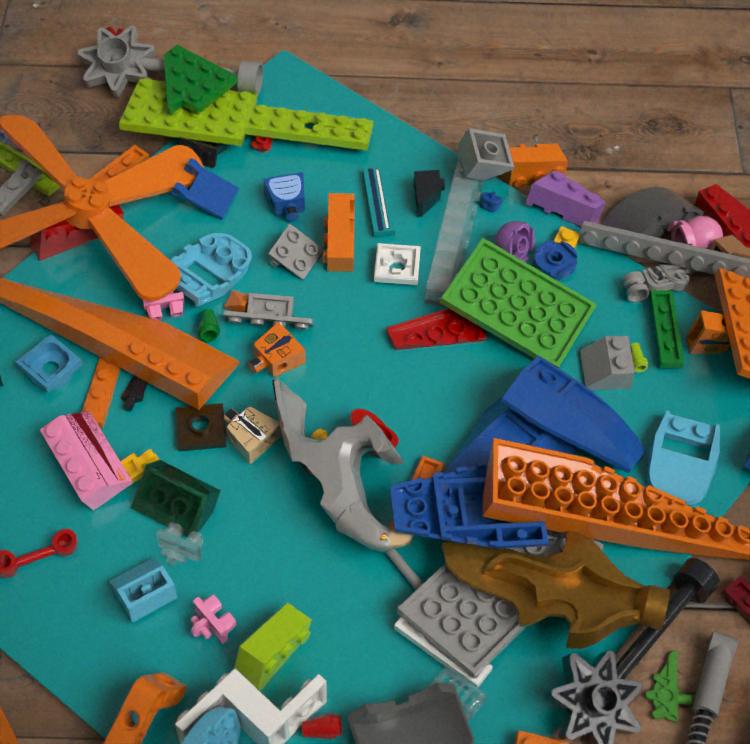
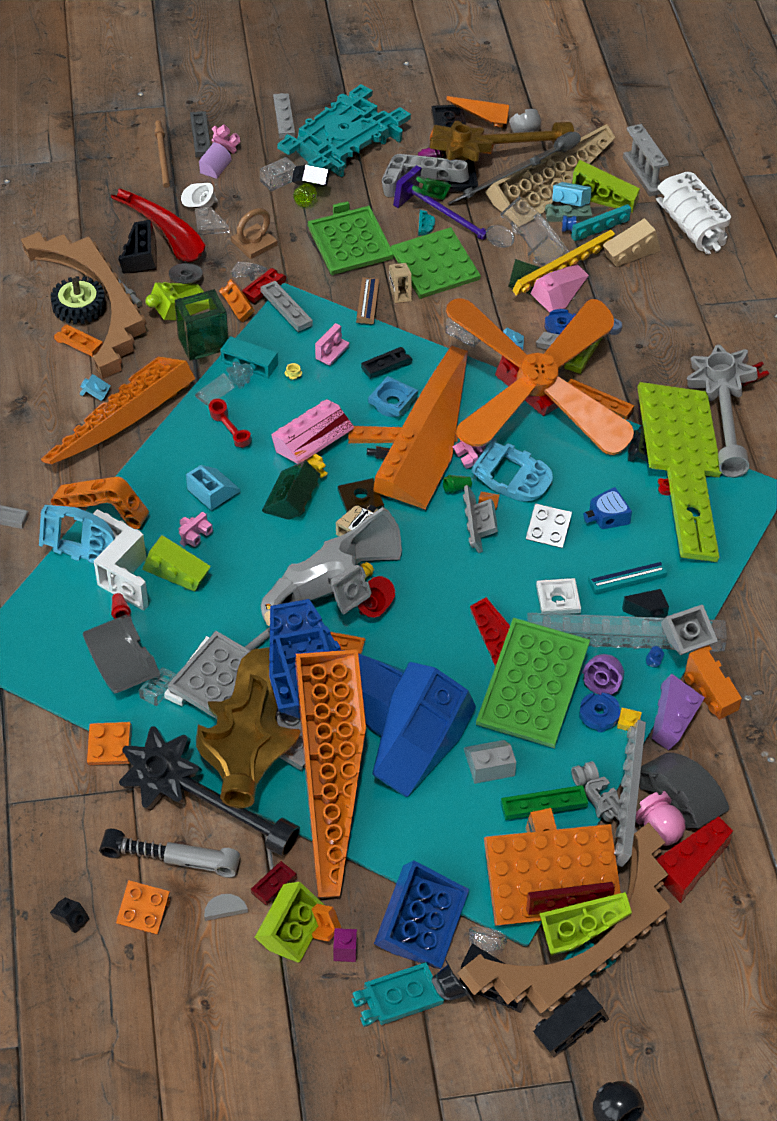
camera: 80 degrees right, 5 degrees down
(177, 548) = (249, 500): clear hips -> none
(193, 80) = (705, 419): green wing -> none
(207, 191) = (594, 459): blue flag -> none
(277, 352) = (441, 529): orange torso -> none
(340, 233) = (574, 549): orange wedge -> none
(639, 362) = (503, 782): lime pin -> none
(665, 692) = (182, 830): bright green piece -> none
(680, 473) = (384, 820): medium azure slope -> none

